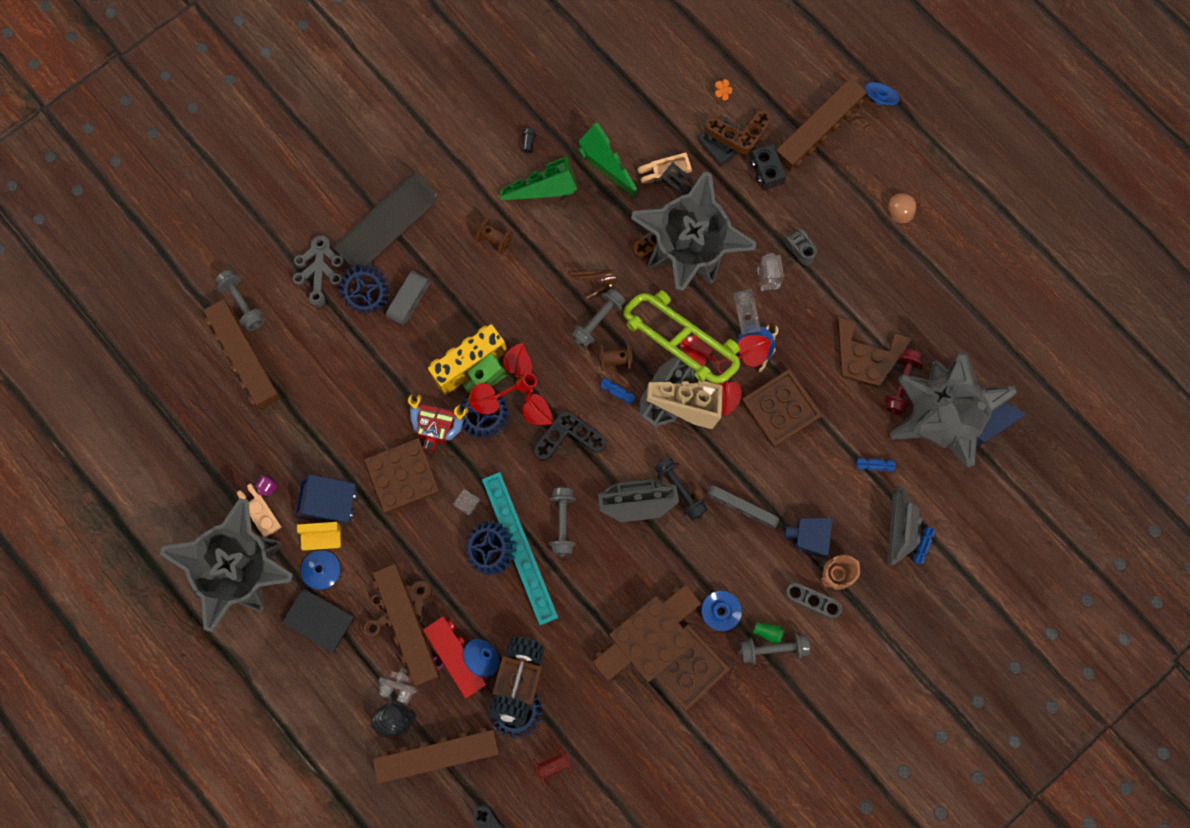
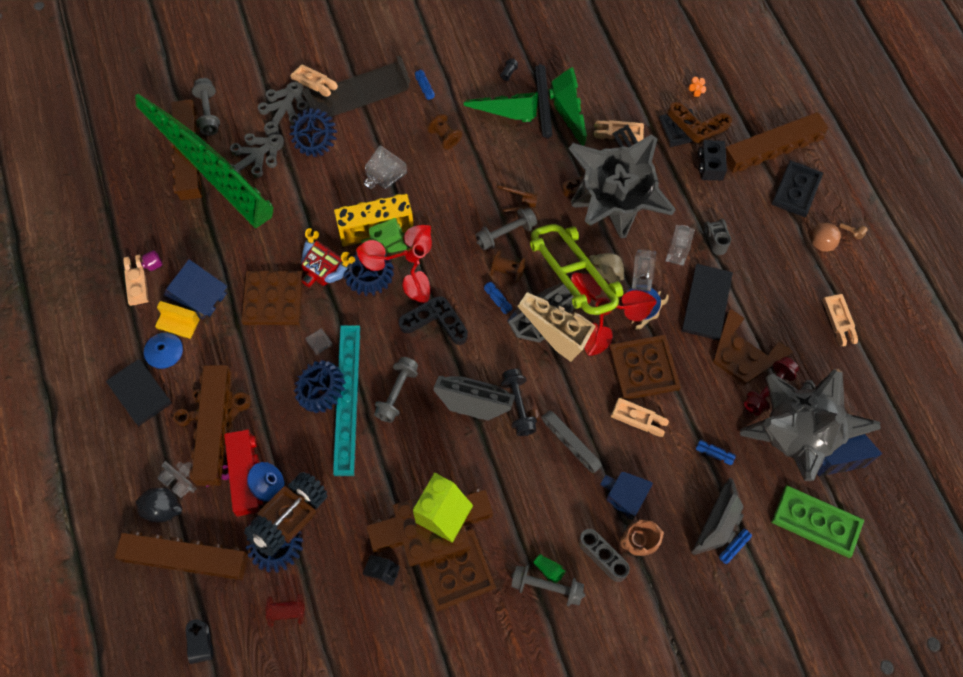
camera: 20 degrees right, 10 degrees down
(228, 565) = (81, 308): dark grey piece -> none
(277, 363) = (210, 164): none -> green wedge
(315, 331) = (257, 153): none -> dark grey plant
(335, 228) = (314, 80): none -> light nougat hinge
(408, 298) = (347, 155): dark grey beam -> none
(450, 189) = (424, 84): none -> blue axle
(450, 299) = (384, 169): none -> clear torso
(577, 163) = (543, 98): none -> black axle
(621, 694) = (381, 569): none -> black bracket
(660, 622) = (442, 508): none -> lime slope
(711, 321) = (609, 266): none -> dark tan hair
(723, 600) = (510, 519): blue dish -> none
(793, 458) = (638, 417): none -> light nougat hinge
(815, 318) = (707, 302): none -> black tile
(858, 166) = (797, 188): none -> black tile
(882, 94) = (841, 136): blue dish -> none
(931, 192) = (858, 233): none -> medium nougat hand
(943, 288) = (840, 319): none -> light nougat hinge
(986, 493) = (818, 521): none -> bright green tile

